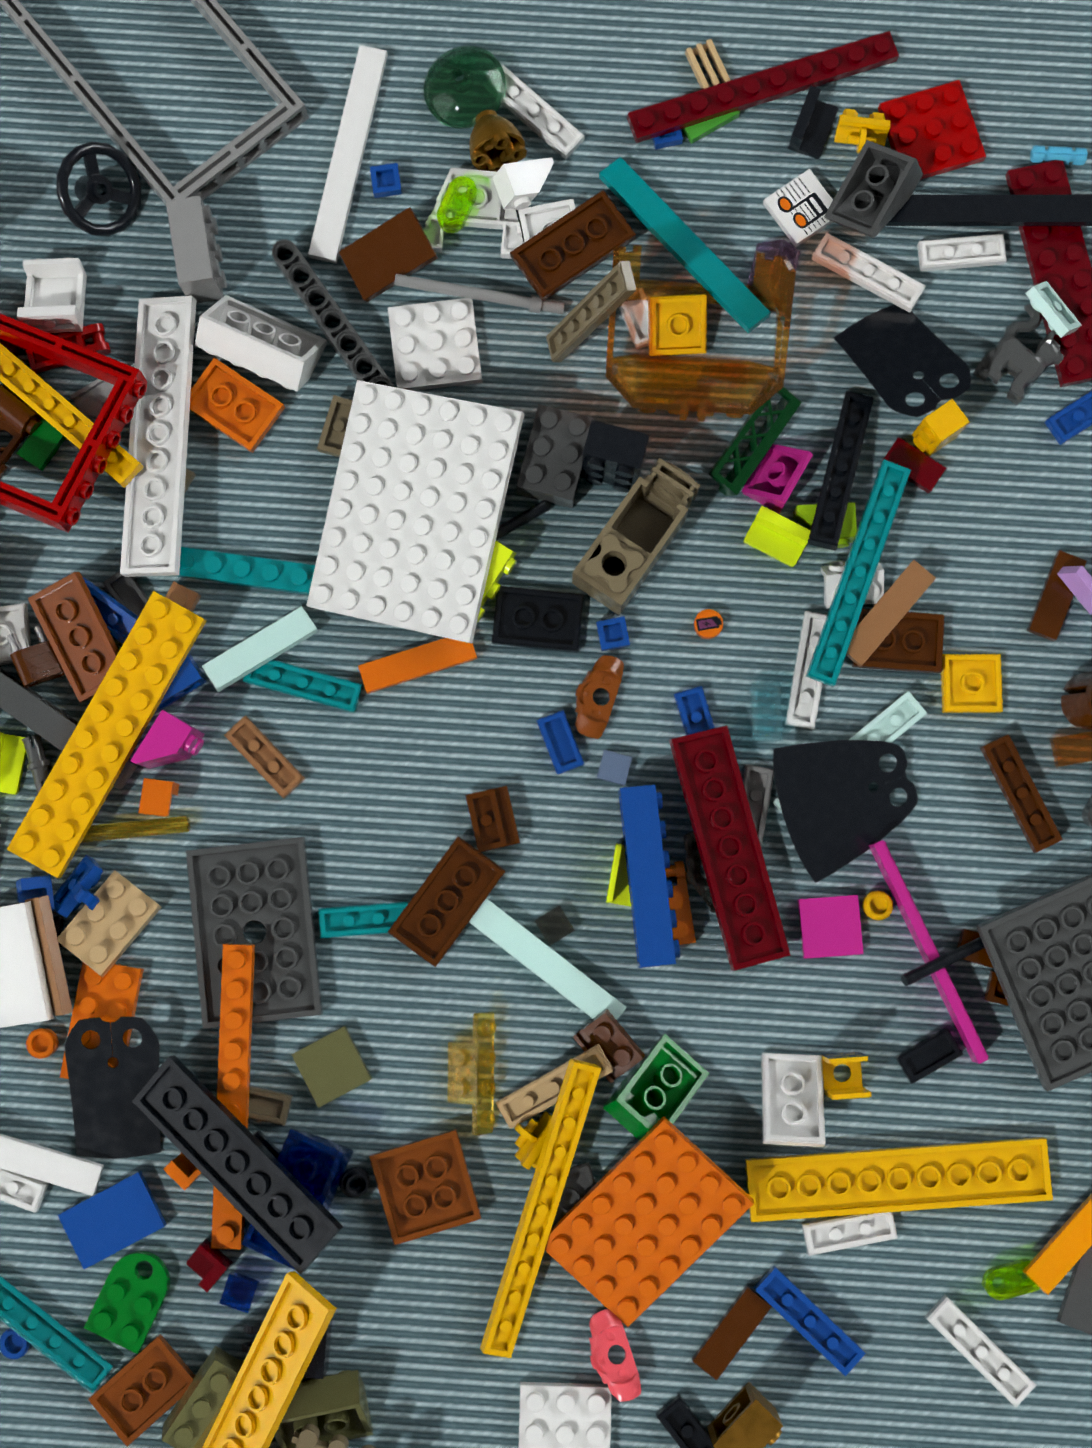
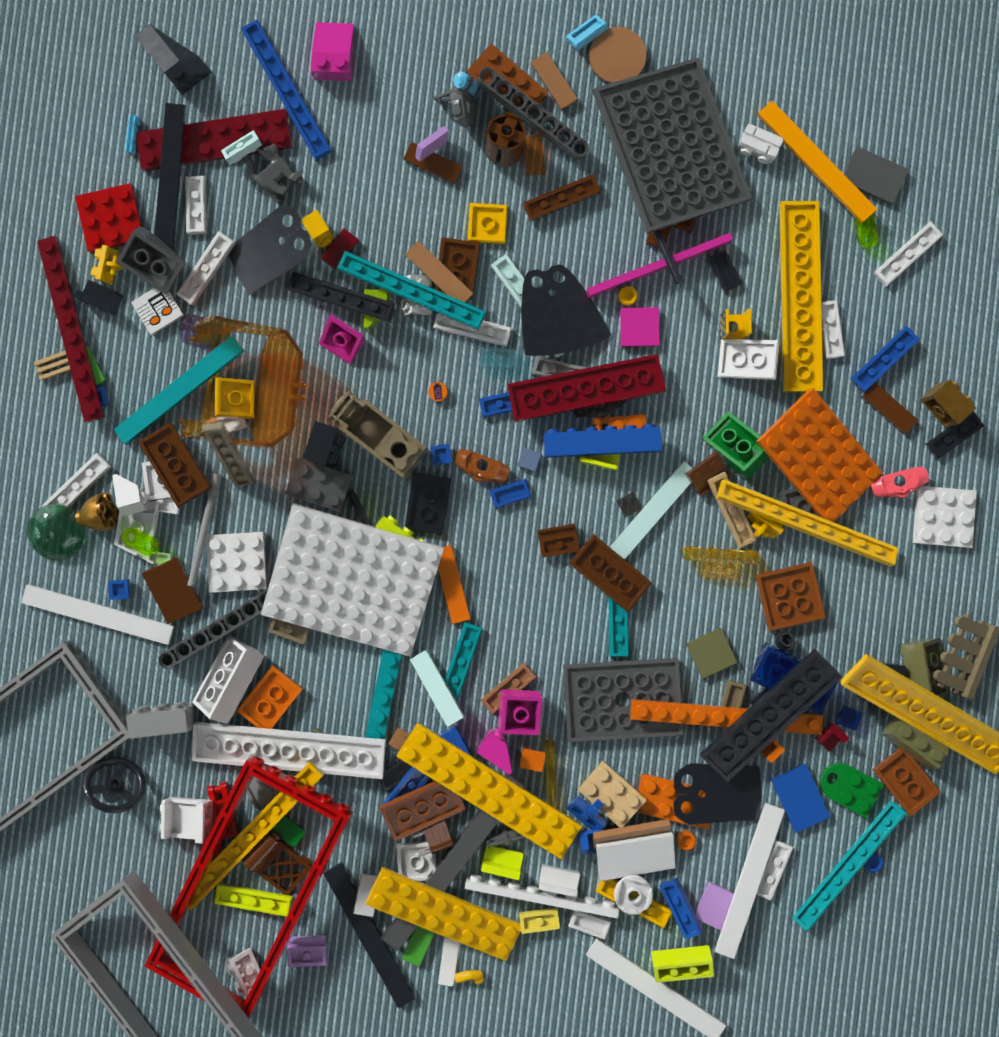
camera: 85 degrees left, 5 degrees up
(227, 774) = (520, 712): none -> dark pink brick
(759, 443) = (320, 349): dark green fence -> none
(777, 536) = (382, 342): neon yellow panel -> none

